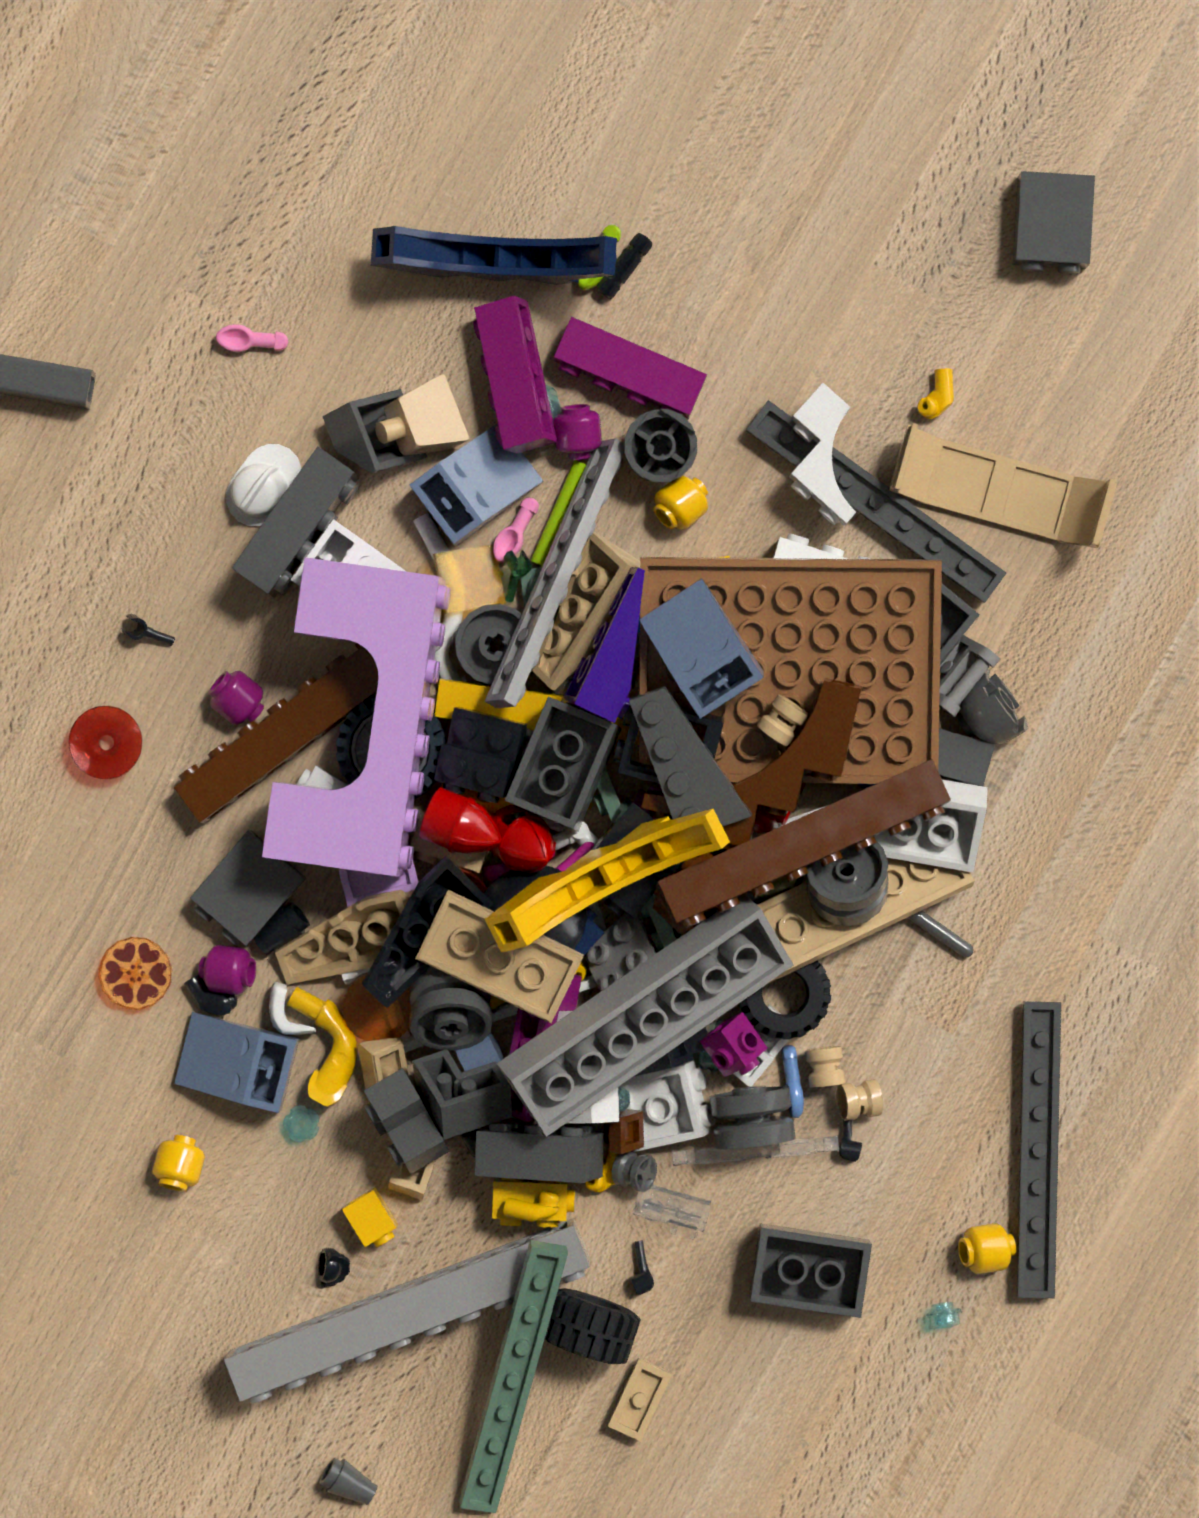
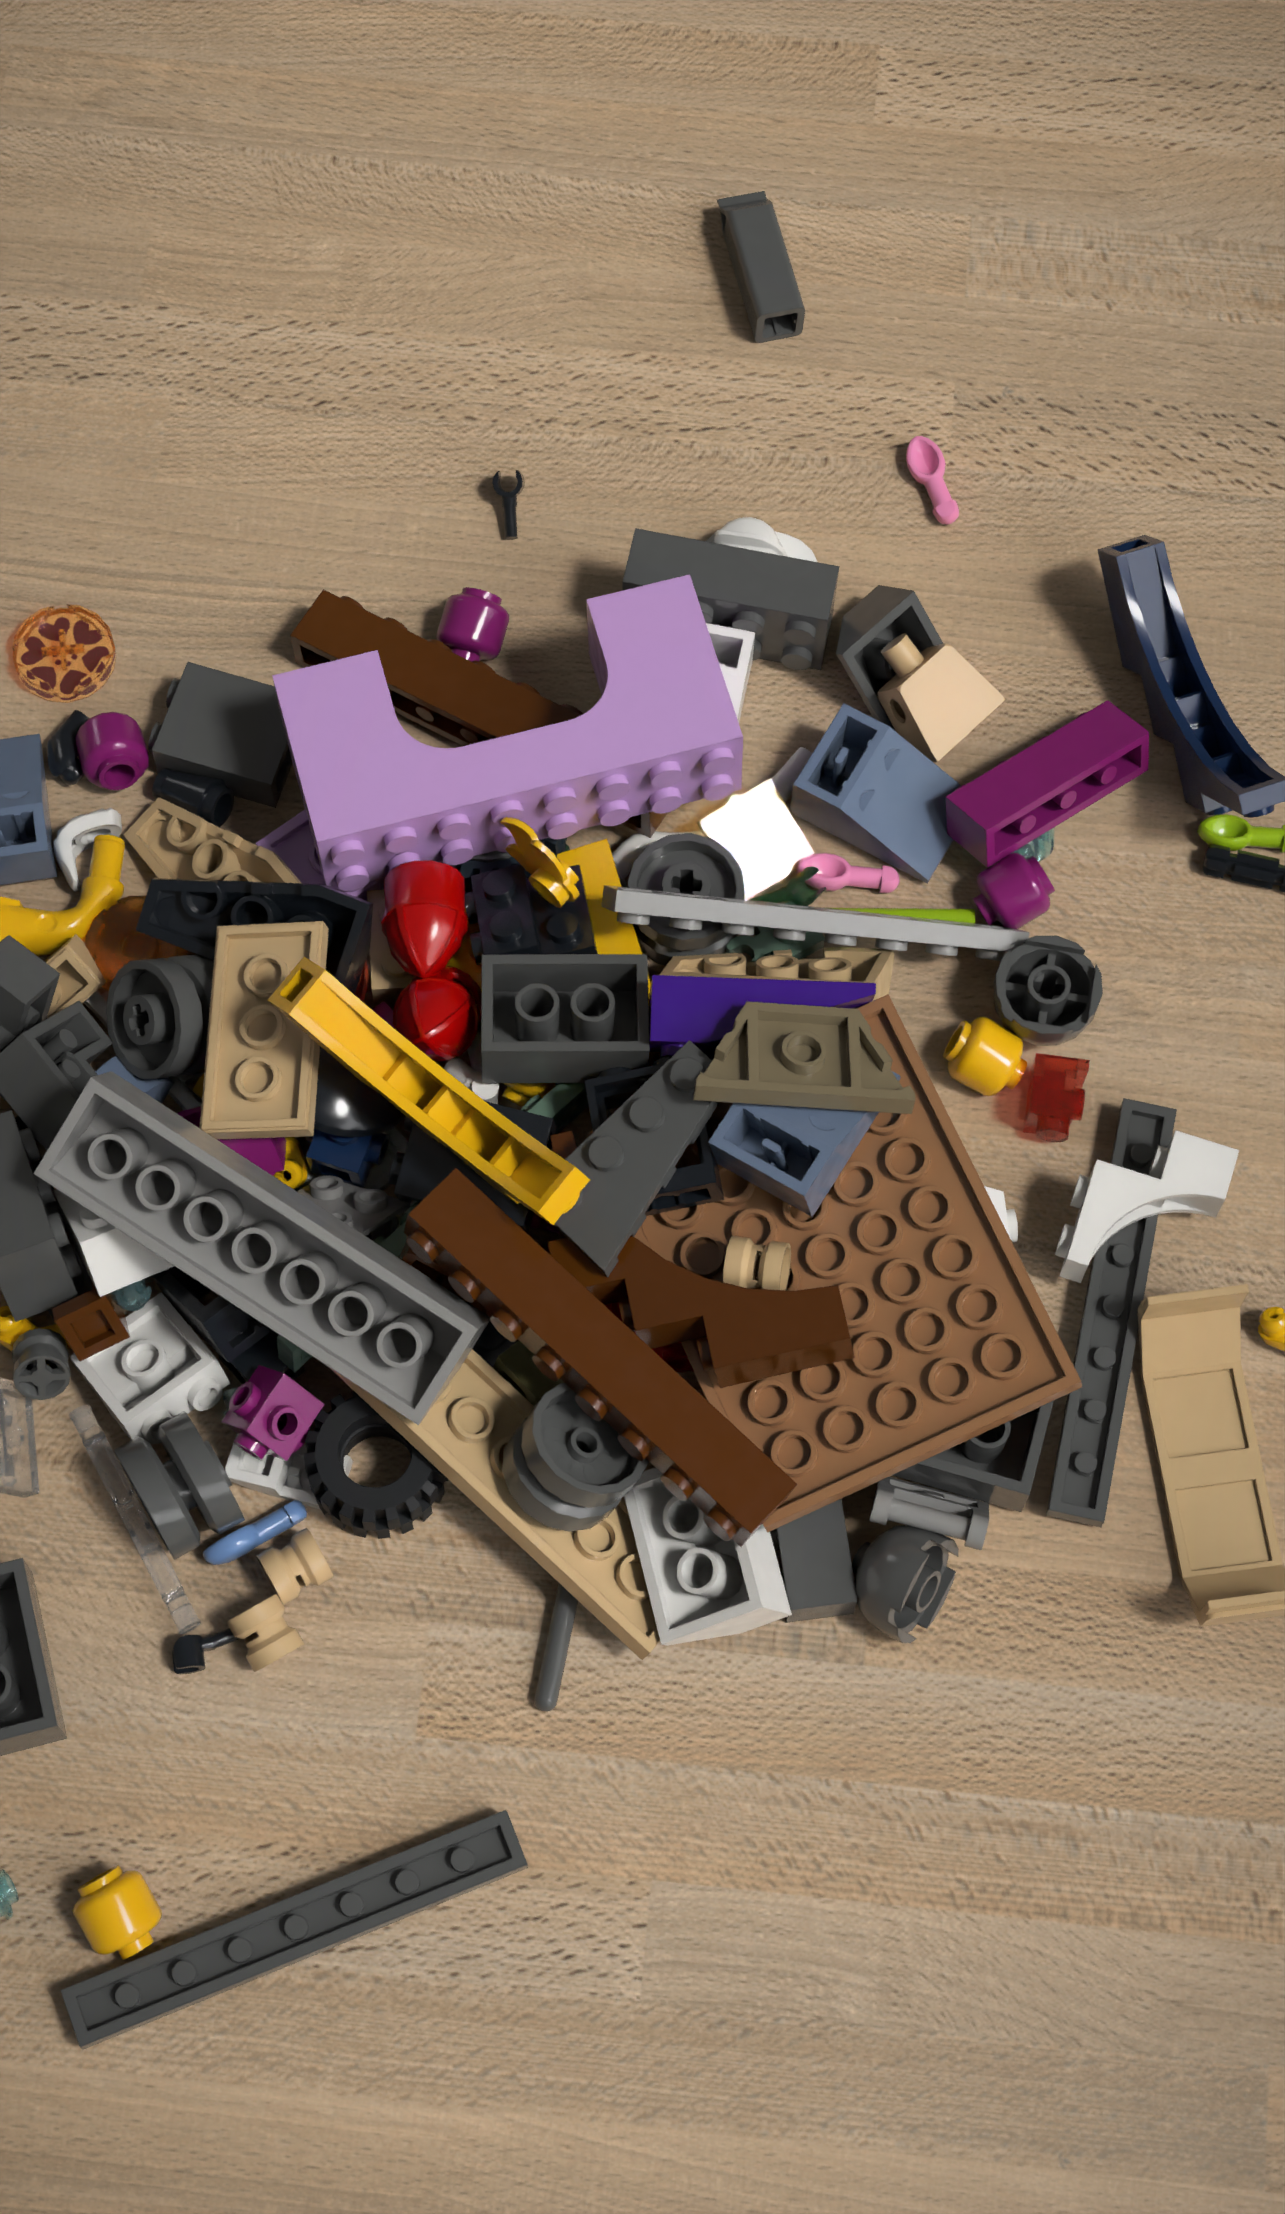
camera: 65 degrees right, 20 degrees down
(87, 736) = (342, 485): clear red dish -> none
(469, 734) = (549, 875): none -> yellow plate
(628, 367) = (1127, 922): magenta brick -> none
(675, 638) = (803, 1061): none -> dark tan wing
(727, 472) = (1054, 1096): none -> clear red brick

